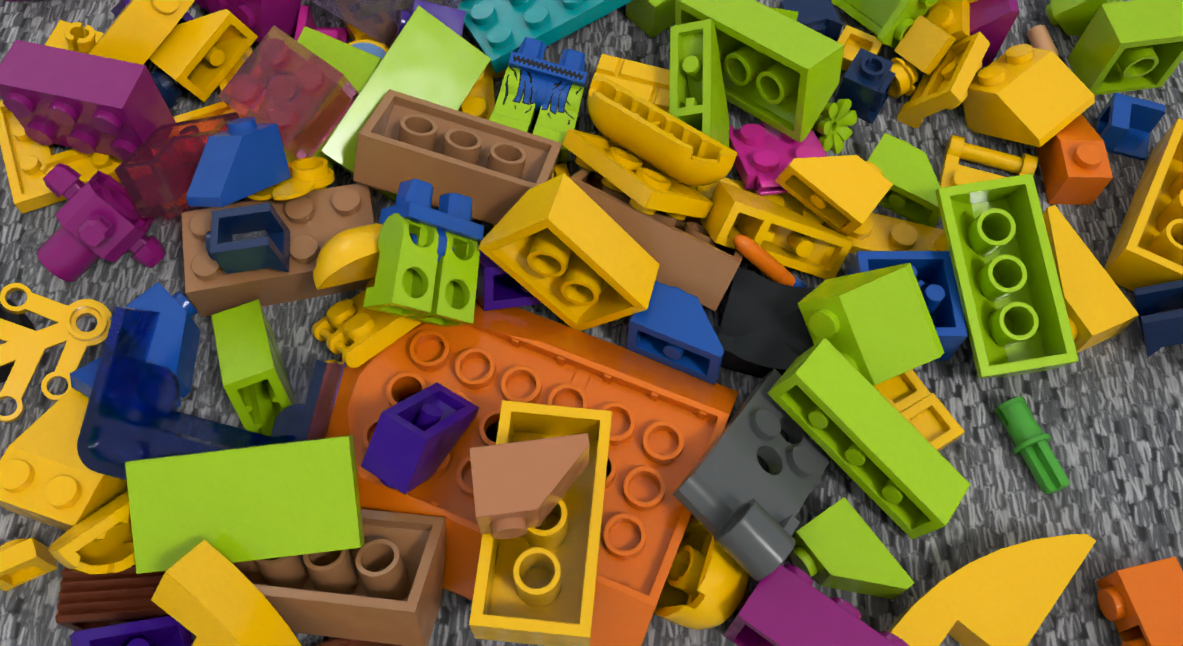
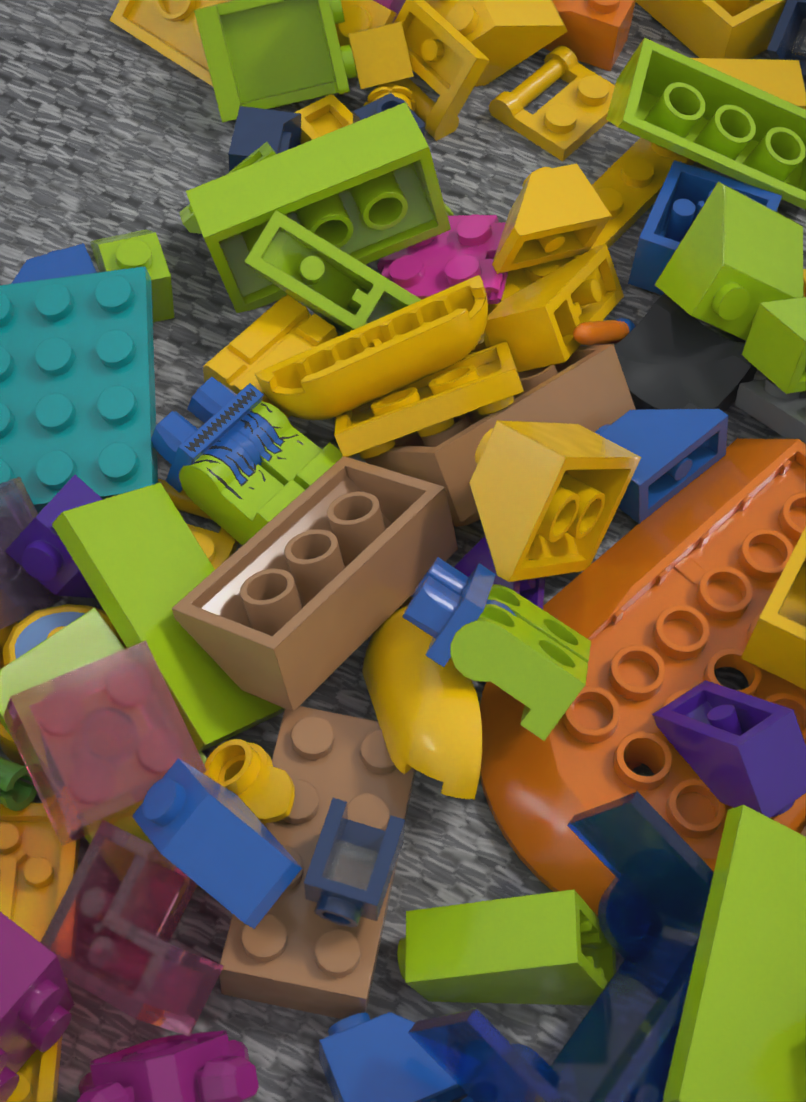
camera: 70 degrees left, 5 degrees down
(359, 331) = (513, 780): yellow plate -> none
(912, 179) = (510, 159): lime slope -> none

